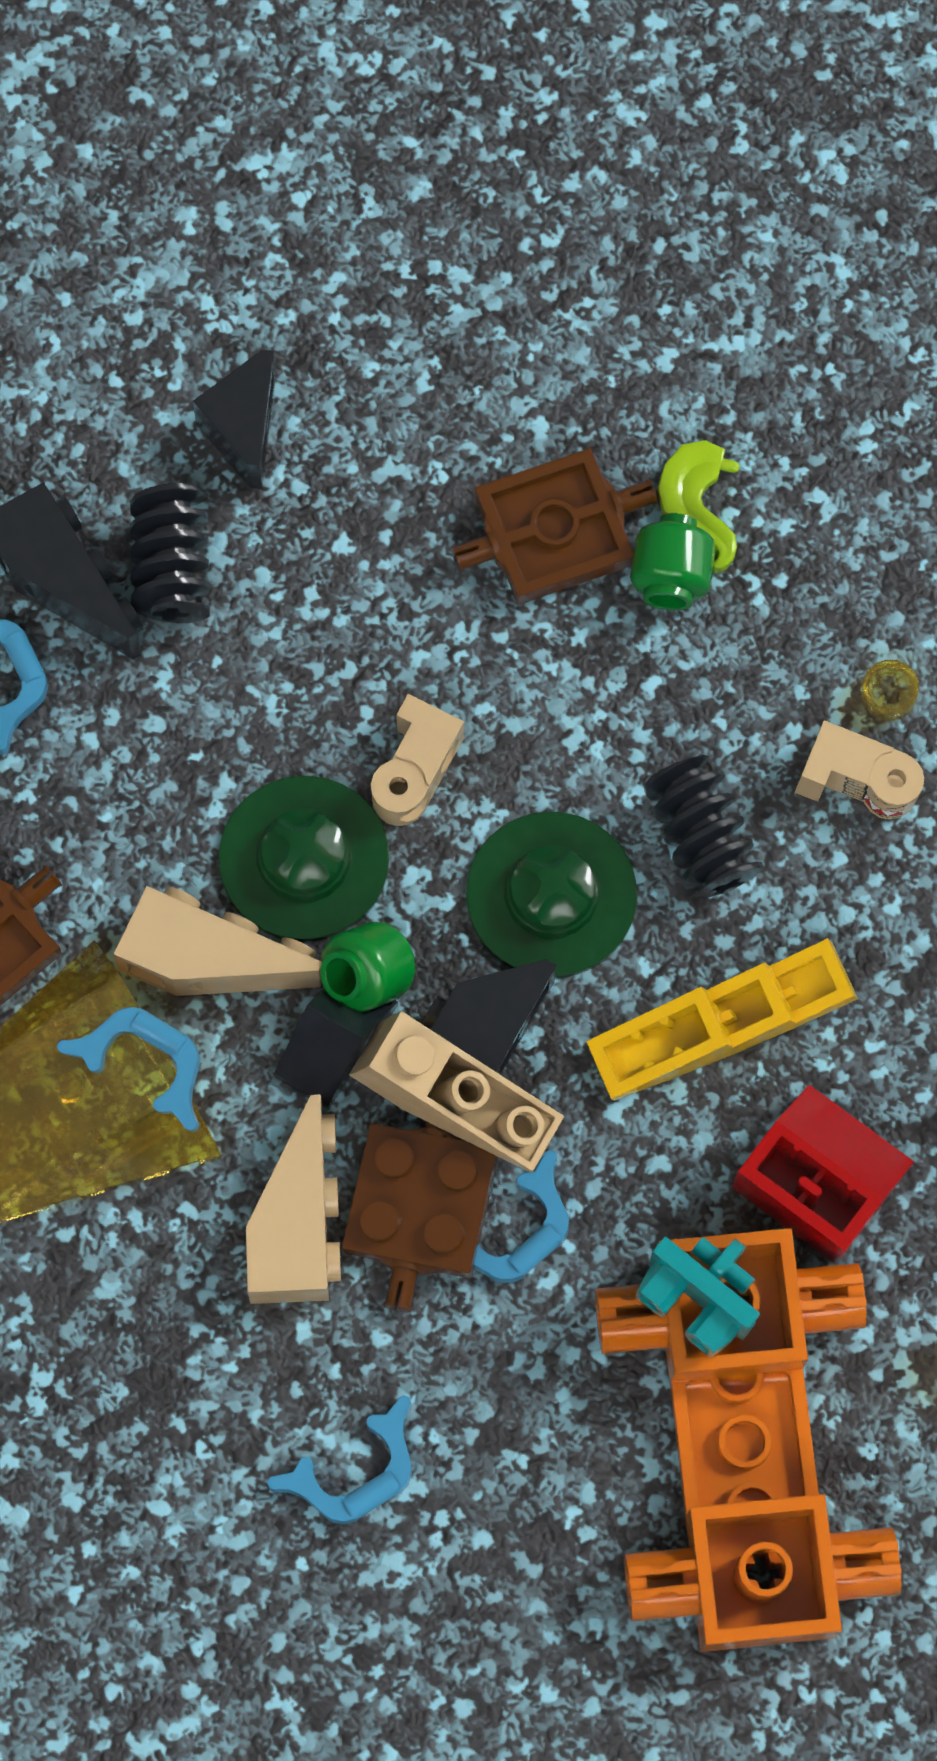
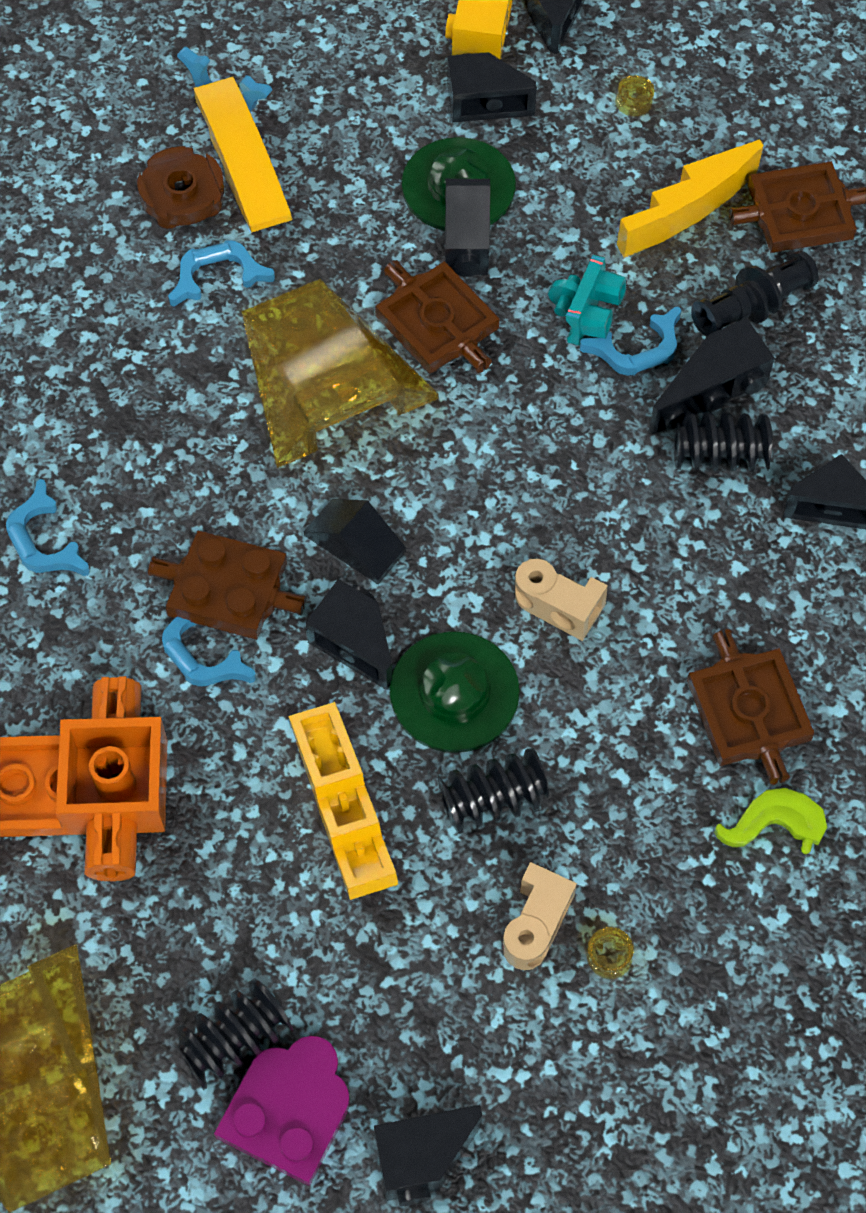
camera: 95 degrees right, 10 degrees down
(158, 1034) = (336, 417): dark azure helmet -> none
(198, 953) = (425, 440): tan slope -> none
(288, 1226) = (217, 497): tan slope -> none
(304, 858) = (491, 527): dark green hat -> none
(367, 966) = (398, 550): green head -> none
(455, 1091) = (293, 595): tan slope -> none
(672, 562) = (717, 787): green head -> none
(677, 1273) = (116, 736): teal hips -> none
(821, 1174) = (210, 854): red slope -> none

